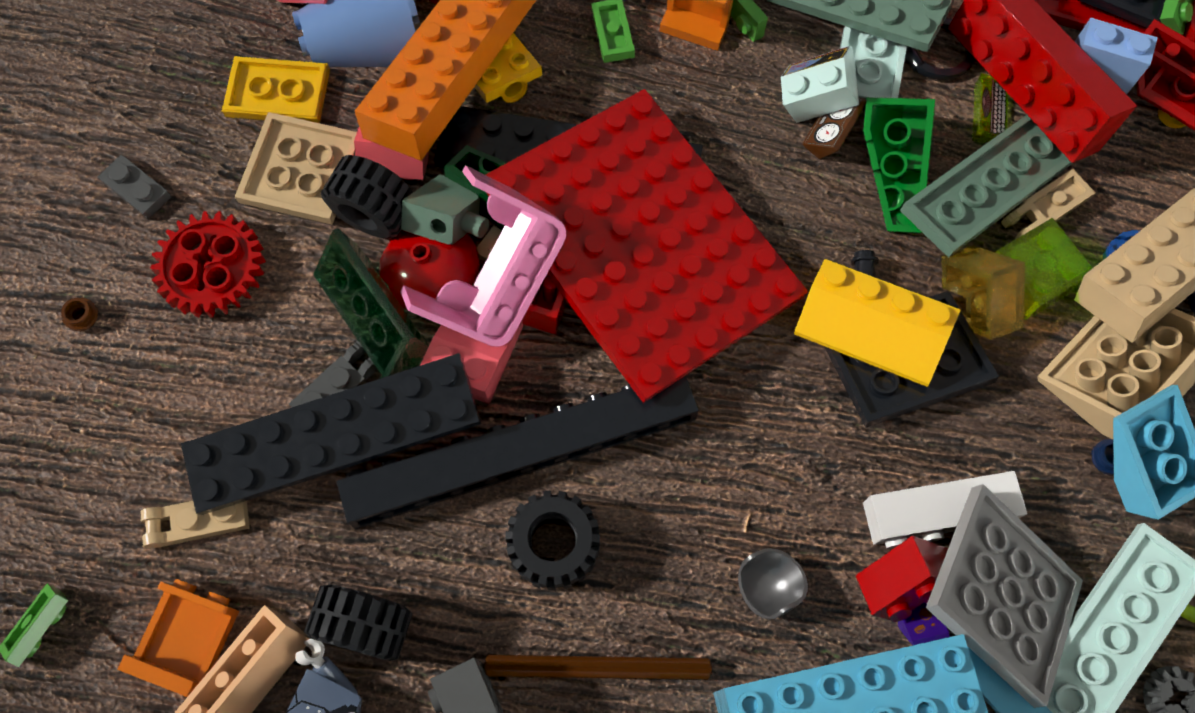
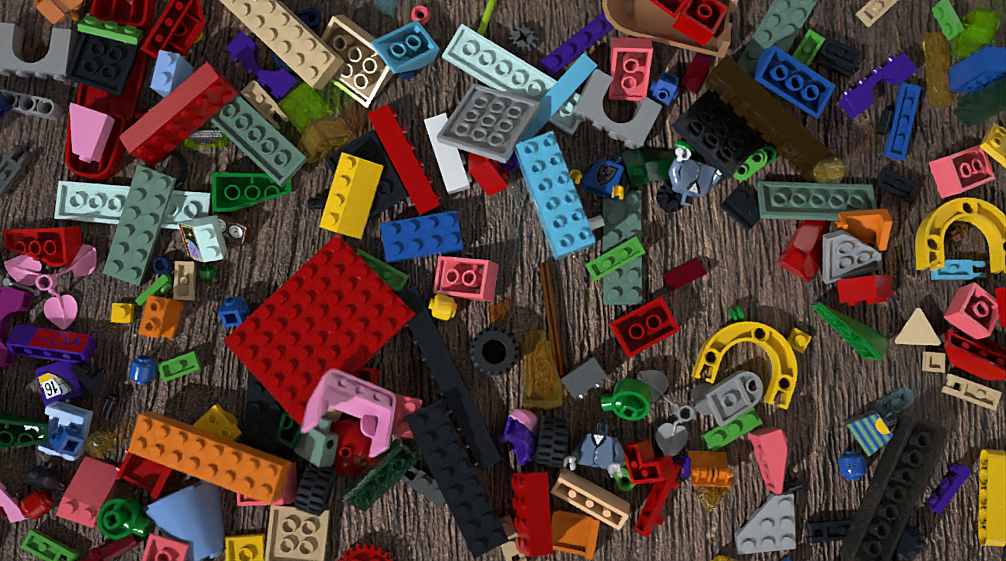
camera: 100 degrees left, 15 degrees up
(231, 563) = (532, 513): none -> red brick
(388, 570) = (521, 434): none -> dark purple hair
(491, 622) = (540, 377): none -> clear yellow wedge
(631, 551) = (501, 316): none -> clear orange plate
(651, 457) = (442, 307): none -> yellow head
(692, 112) = (233, 311): none -> blue brick
(699, 511) = (466, 278): none -> coral slope
(725, 368) = (392, 277): none -> bright green plate
(752, 52) = (184, 280): none -> tan plate
(761, 86) = (207, 272): none -> green hinge
(772, 583) = (498, 237): flat silver helmet -> none
(781, 24) = (162, 265): none -> dark blue plate
(787, 439) = (421, 237): none -> blue brick
(935, 427) = (402, 156): none -> red brick
(1142, 189) = (247, 52): none -> dark purple arch

